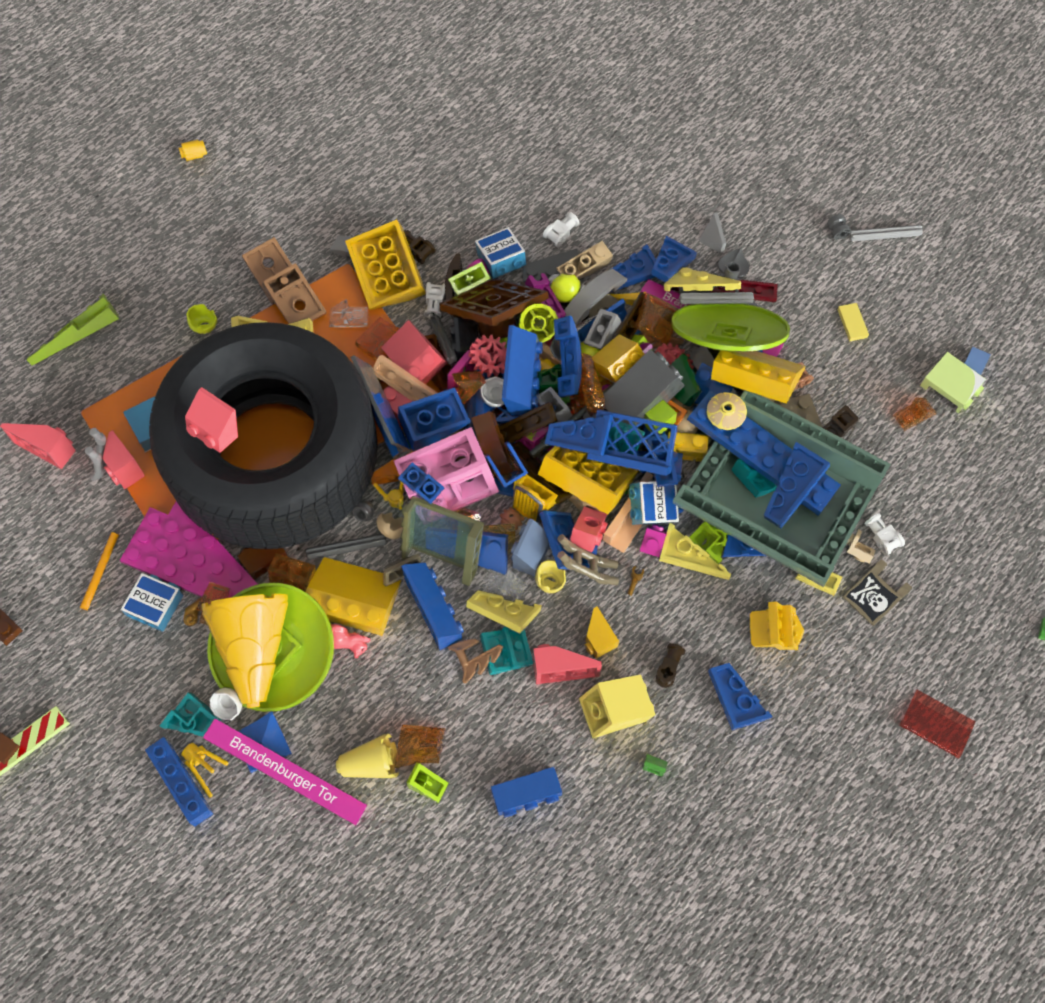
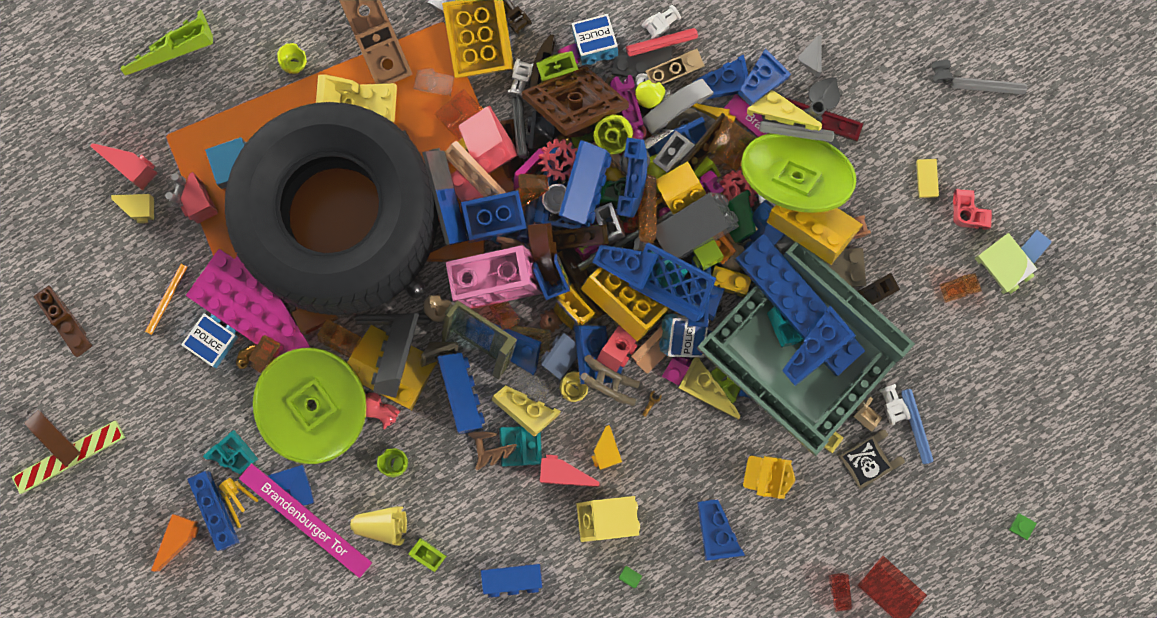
camera: 15 degrees right, 15 degrees up
(56, 483) = (137, 206): none -> light yellow slope
(140, 820) = (177, 536): none -> orange slope
(211, 421) = (281, 208): coral slope -> none
(225, 704) = (263, 450): white hair -> none
(248, 640) = (289, 400): yellow cone -> none
(354, 575) = (395, 355): none -> dark grey slope
(379, 691) = (399, 466): none -> lime hair
(394, 497) = (443, 280): yellow plant -> none
(419, 745) = (426, 520): clear orange plate -> none
(421, 483) = (466, 292): blue slope -> none
(565, 246) = (661, 42): none -> coral axle
(669, 665) = (664, 490): dark brown connector -> none
(726, 419) = (762, 261): tan dish -> none
(885, 734) = (840, 591): none -> clear red leg
(910, 346) = (964, 203): none -> coral piece
(915, 554) = (917, 427): none -> medium blue axle

